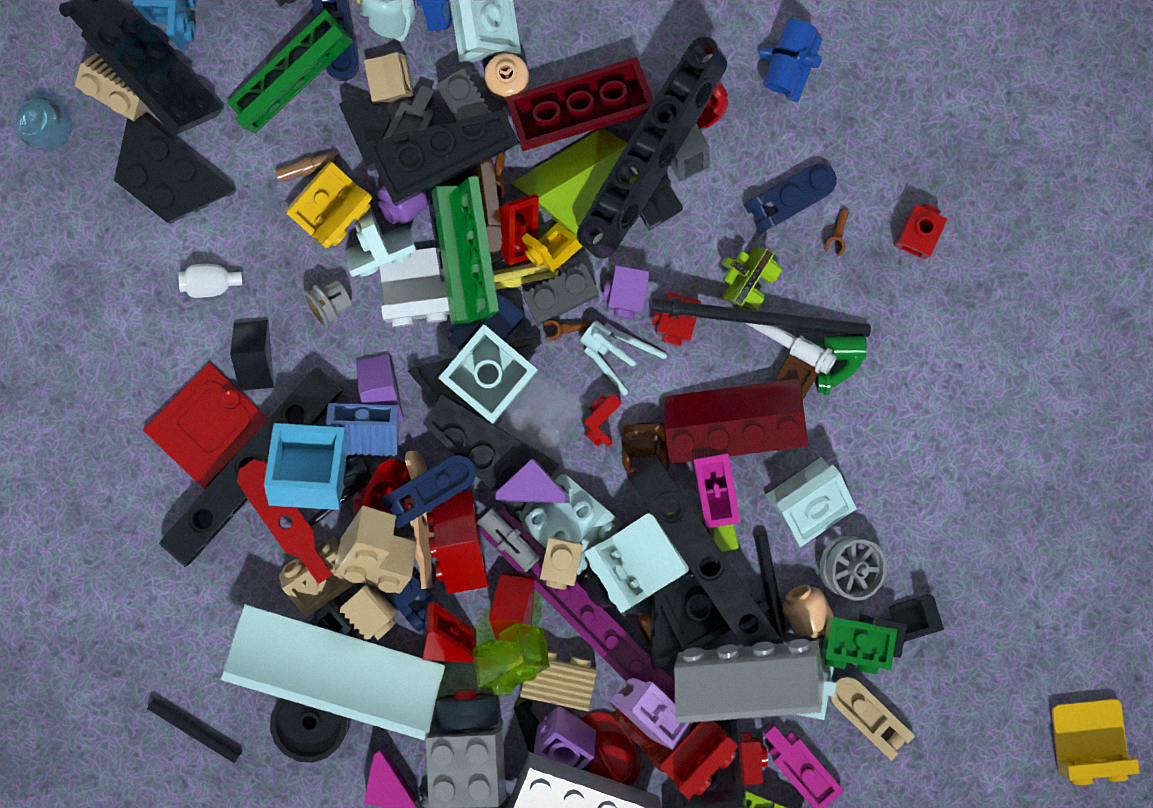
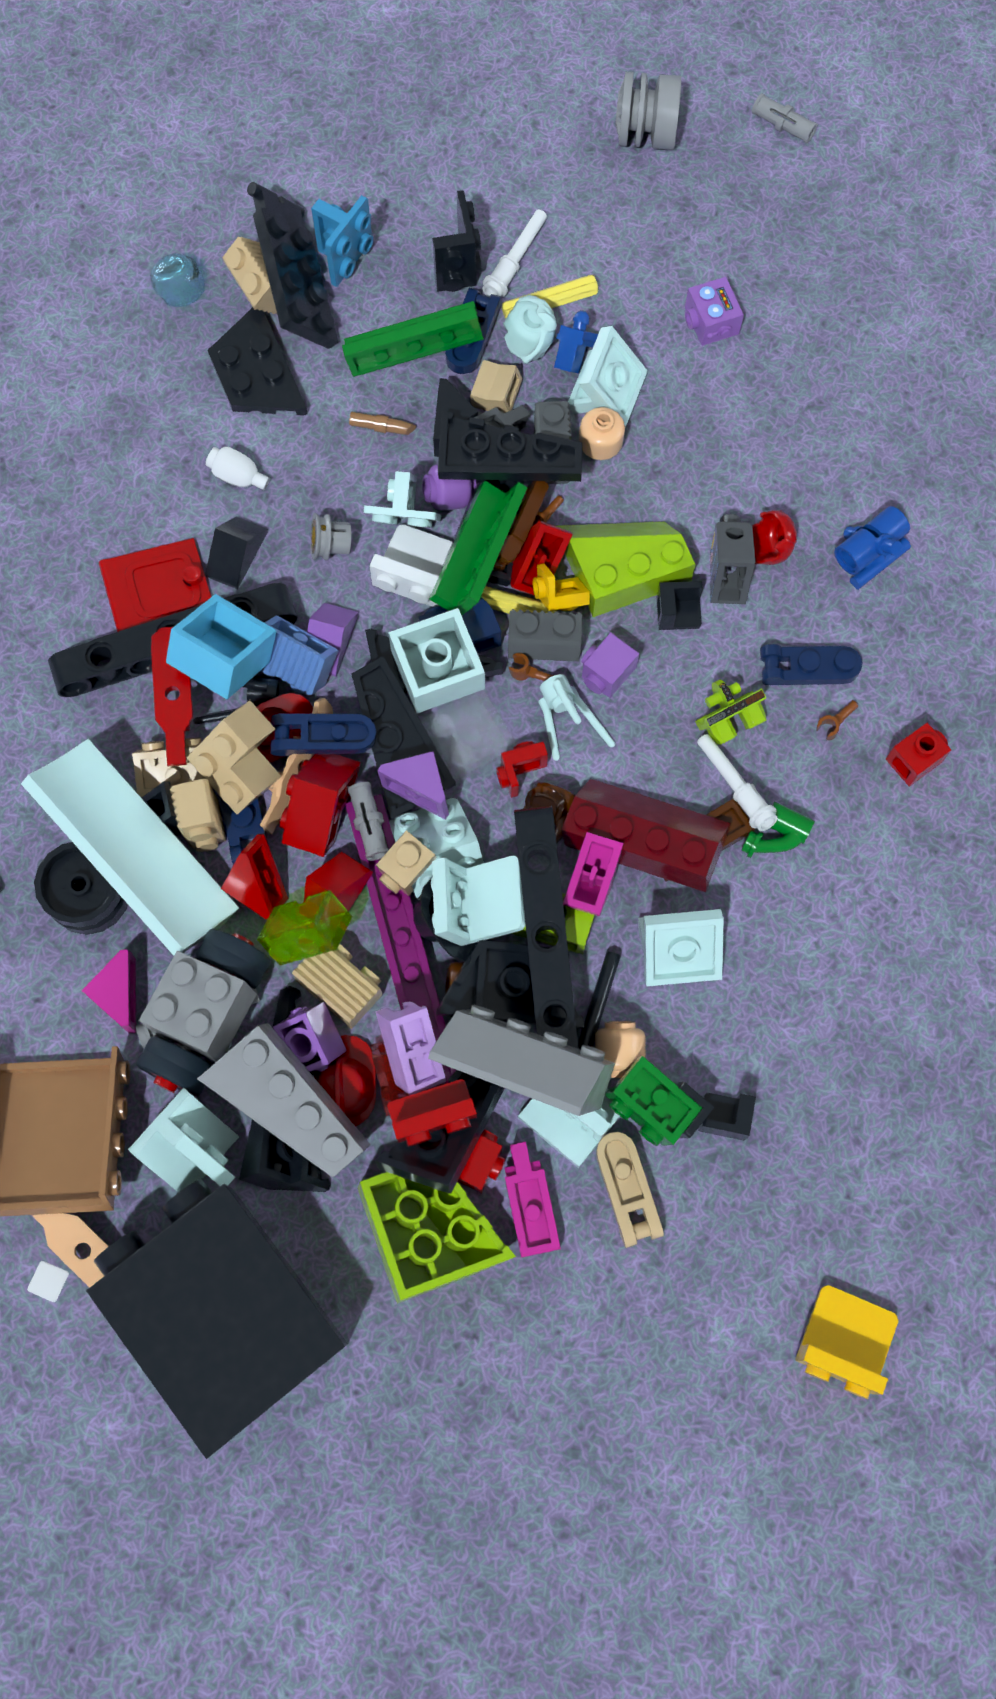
camera: 30 degrees right, 15 degrees down
(329, 205) = (379, 454): yellow bracket -> none
(579, 104) = (654, 483): dark red slope -> none
(652, 147) = (700, 537): black beam -> none
(672, 329) = (642, 712): red brick -> none
(675, 308) = (646, 693): black bar -> none
(853, 567) = (689, 1028): light grey wheel -> none

